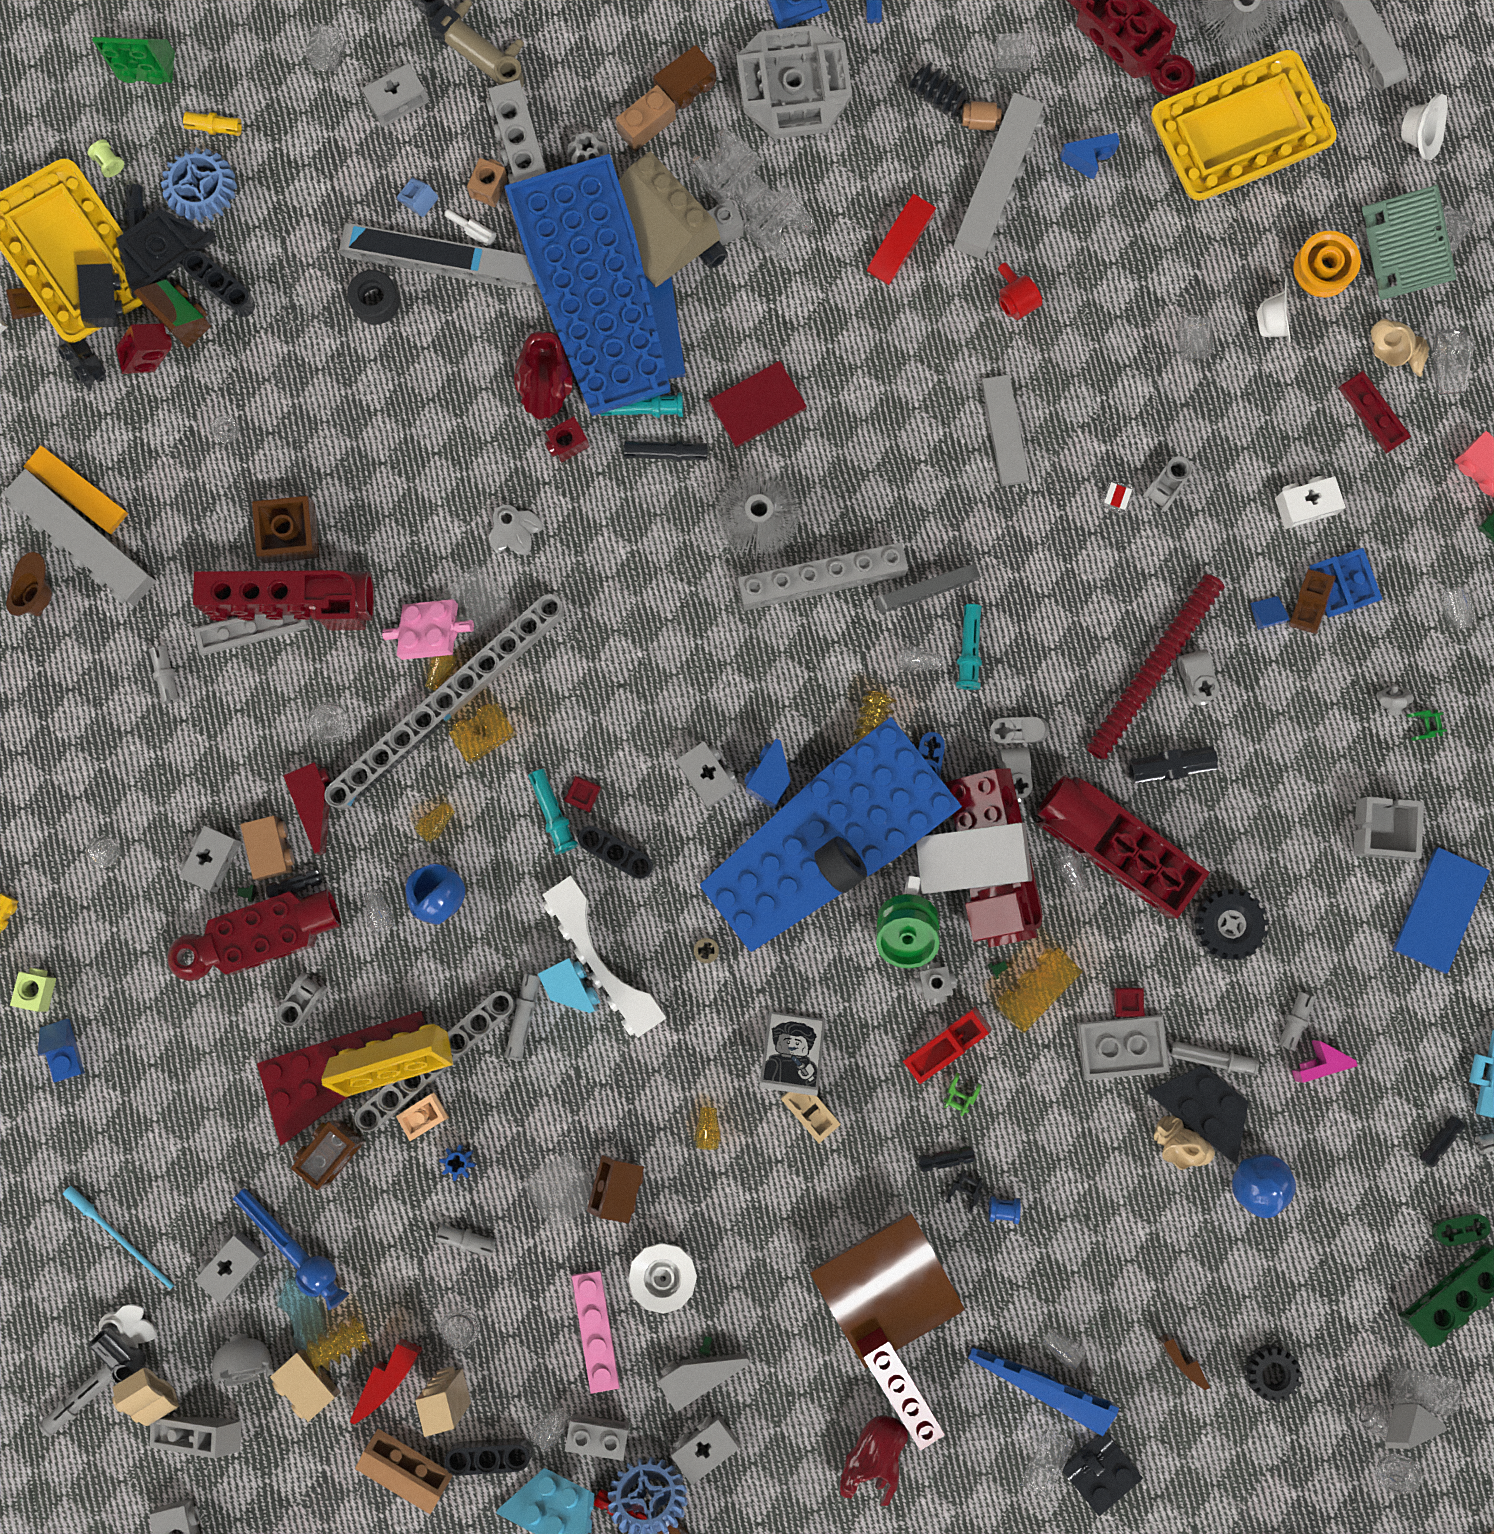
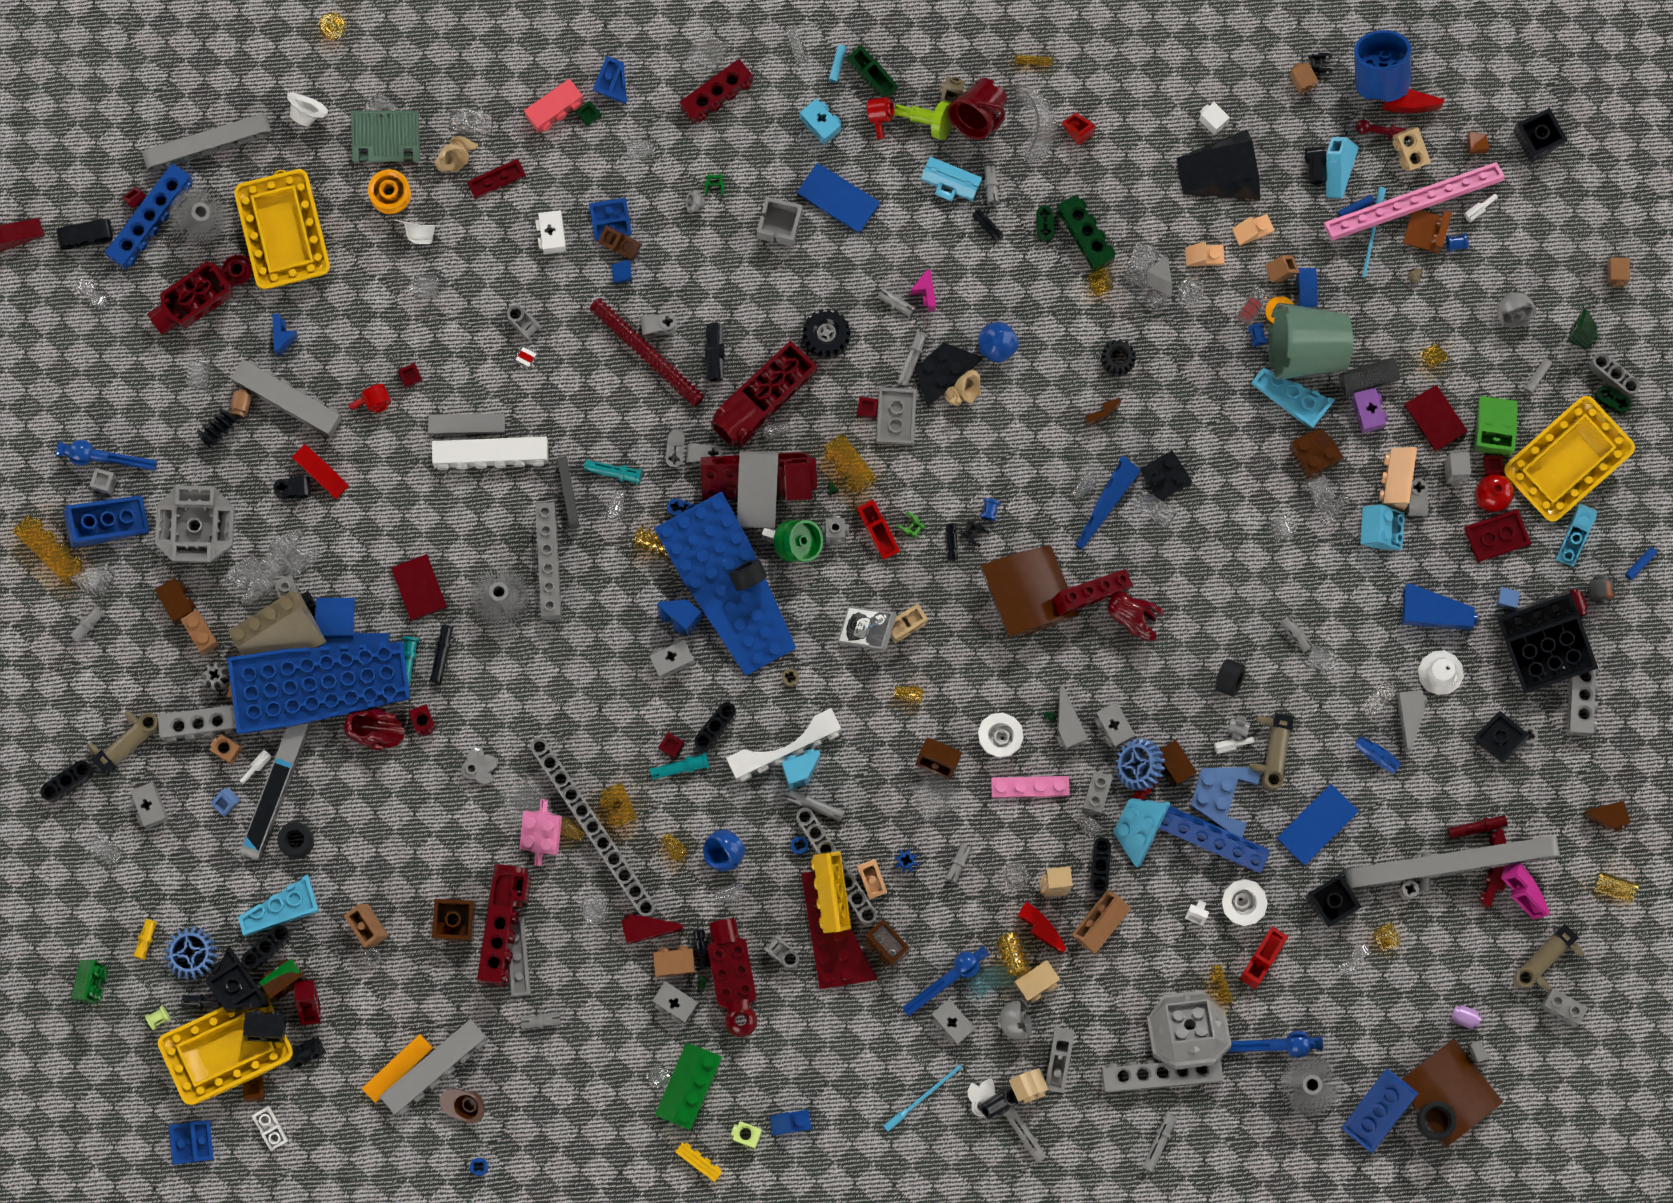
camera: 80 degrees left, 5 degrees down
(93, 896) = (688, 1086): none -> green slope
(263, 411) = (366, 925): none -> medium nougat brick
(281, 302) = (287, 906): none -> medium azure wing
(456, 1008) = (795, 841): none -> blue bush
(696, 296) = (335, 617): none -> blue slope
(872, 210) = (296, 487): none -> black piece
(968, 469) = (490, 452): none -> white brick
(1062, 340) = (410, 375): none -> dark red tile
(1386, 1328) = (1100, 281): none -> clear yellow slope
(1459, 1485) = (1204, 255): none -> light nougat slope

